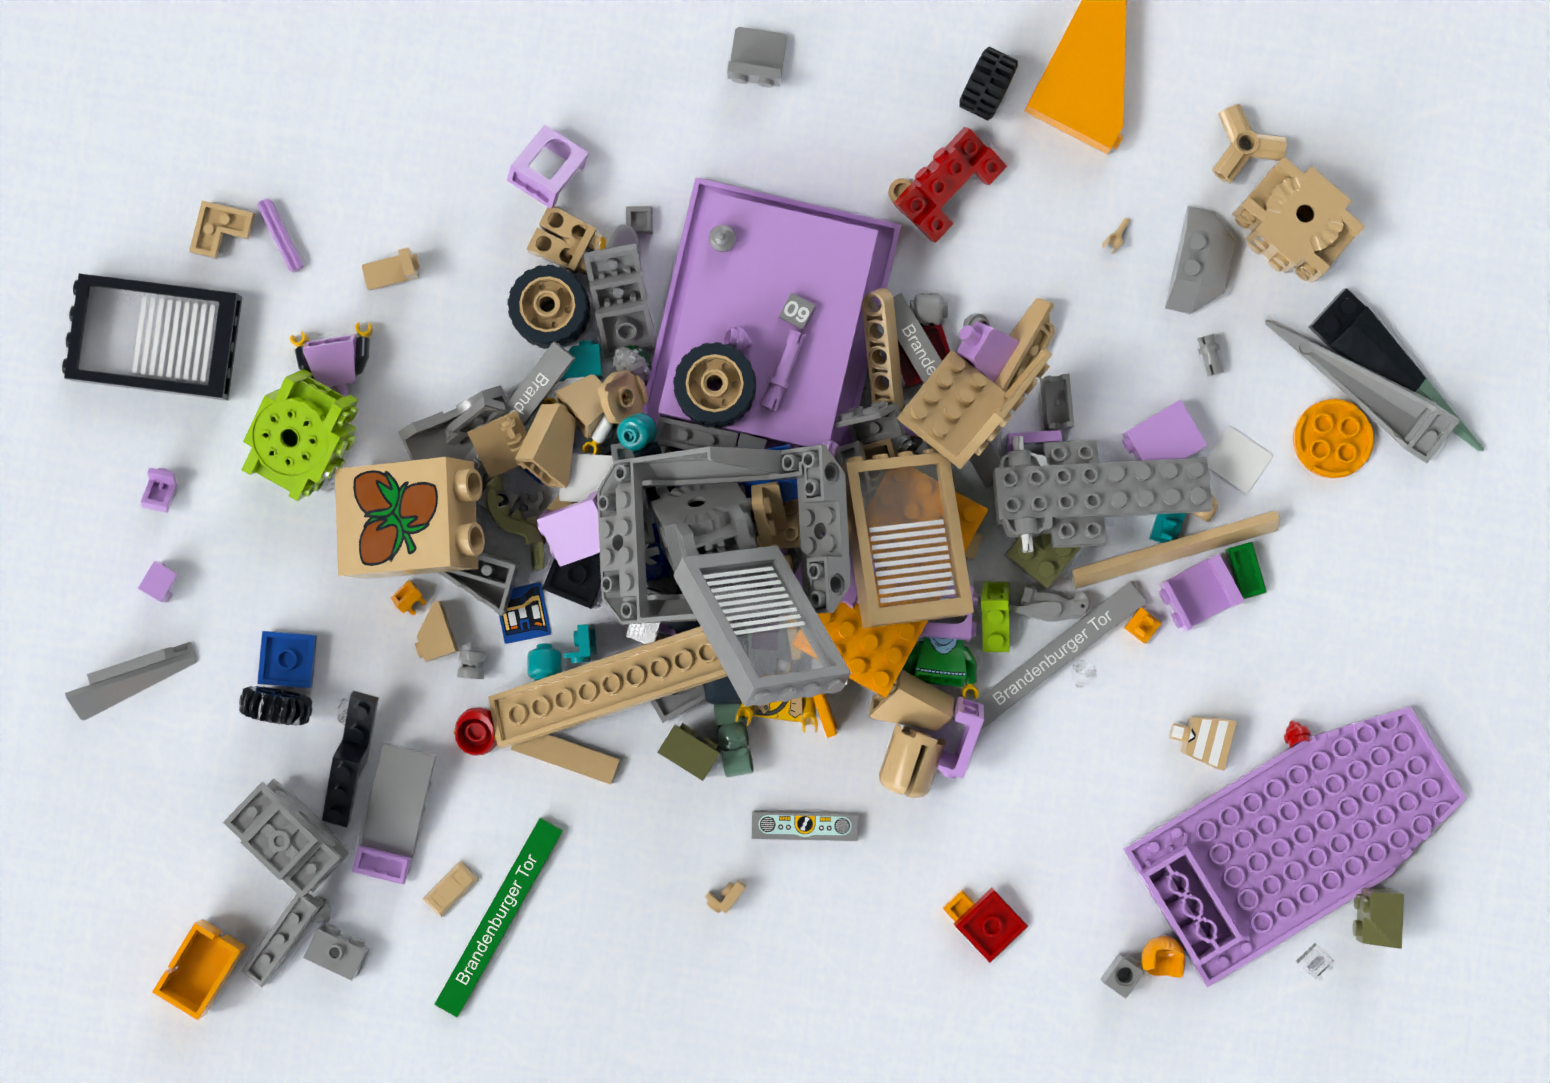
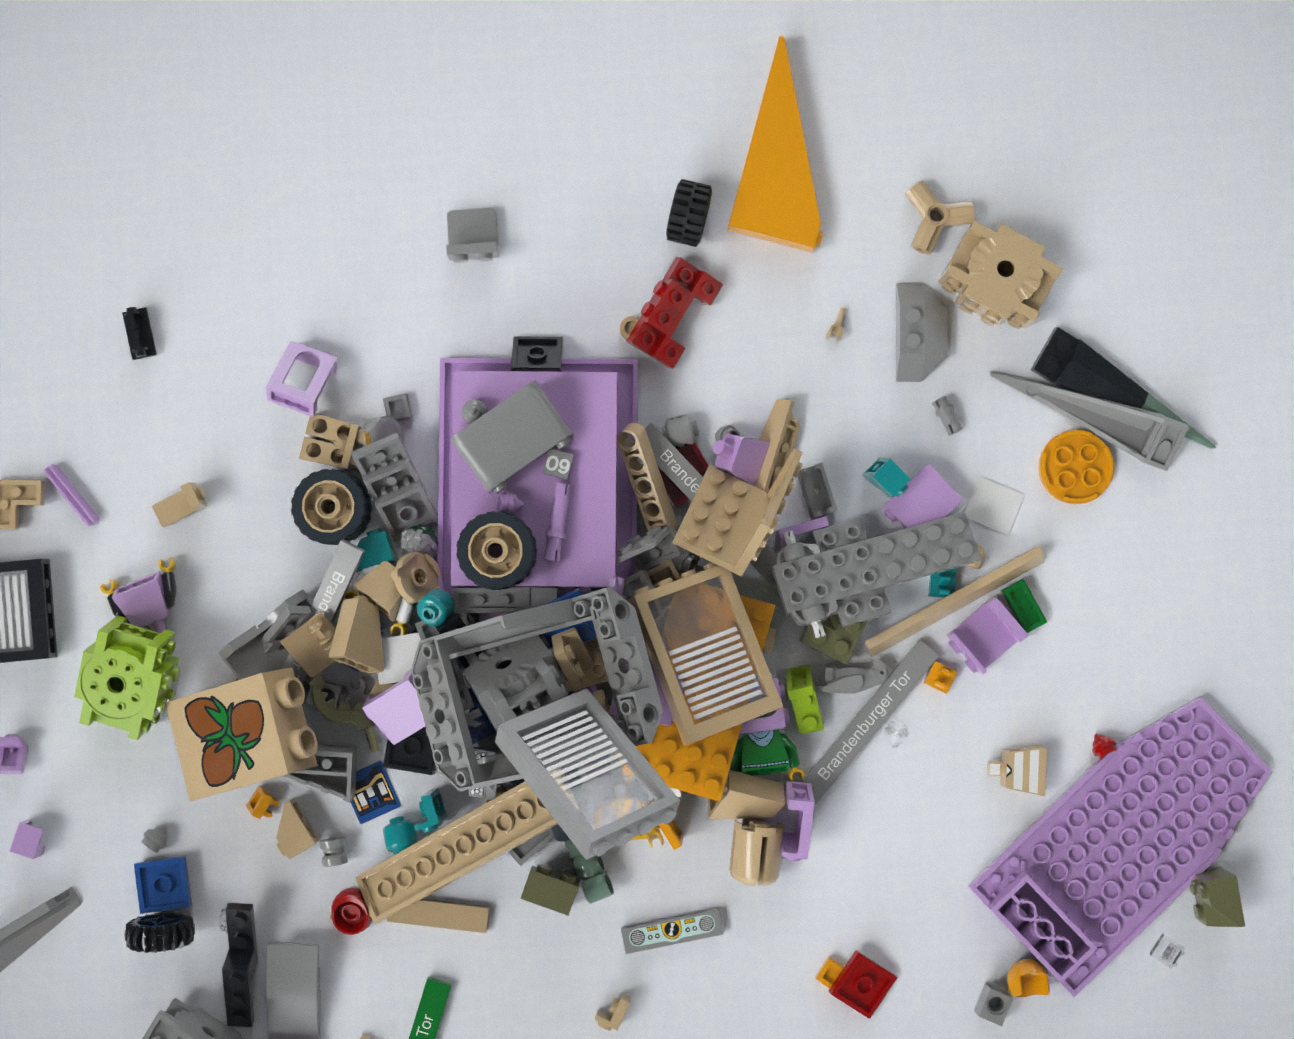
camera: 10 degrees left, 0 degrees up
(289, 611) = (155, 838): none -> light grey plate
(387, 82) = (139, 333): none -> black hinge
(756, 271) = (511, 436): none -> light grey windscreen
(797, 194) = (537, 354): none -> black tile
(1134, 404) = (887, 477): none -> teal slope

